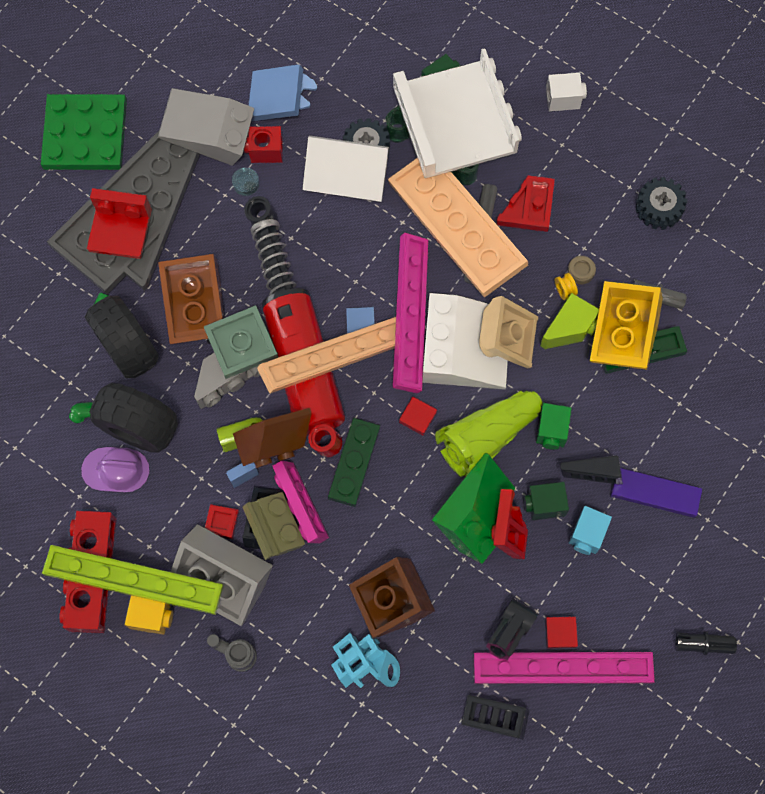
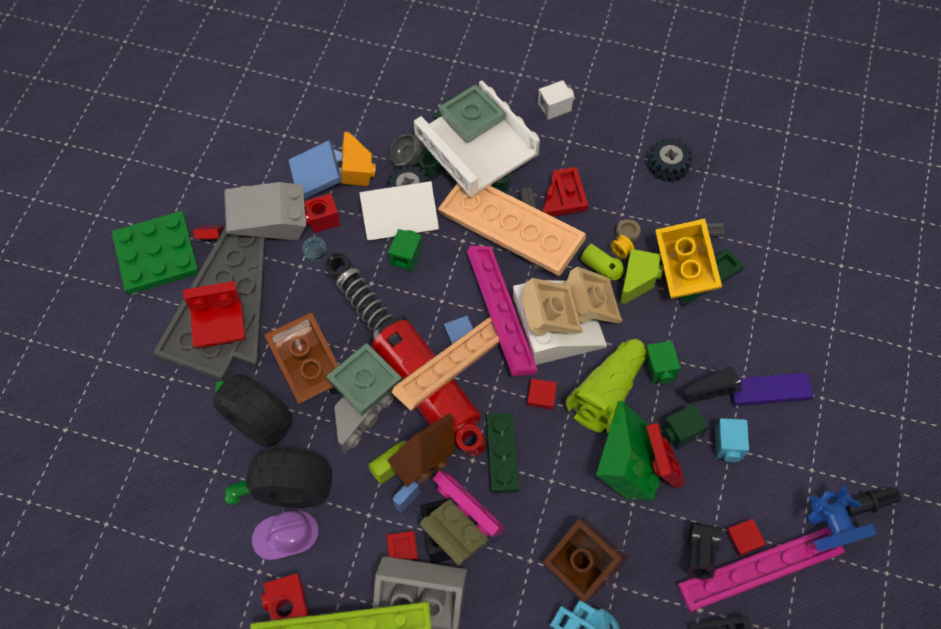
camera: 20 degrees left, 10 degrees down
(142, 127) = (208, 232): none -> red tile
(320, 98) = (356, 162): none -> light orange slope
(337, 213) = (405, 249): none -> green brick
(378, 101) = (405, 150): none -> dark grey hair
(455, 331) = (550, 307): none -> tan slope
(461, 82) = (471, 113): none -> sand green plate
(537, 298) = (602, 262): none -> lime piece
(657, 649) = (838, 519): none -> blue piece

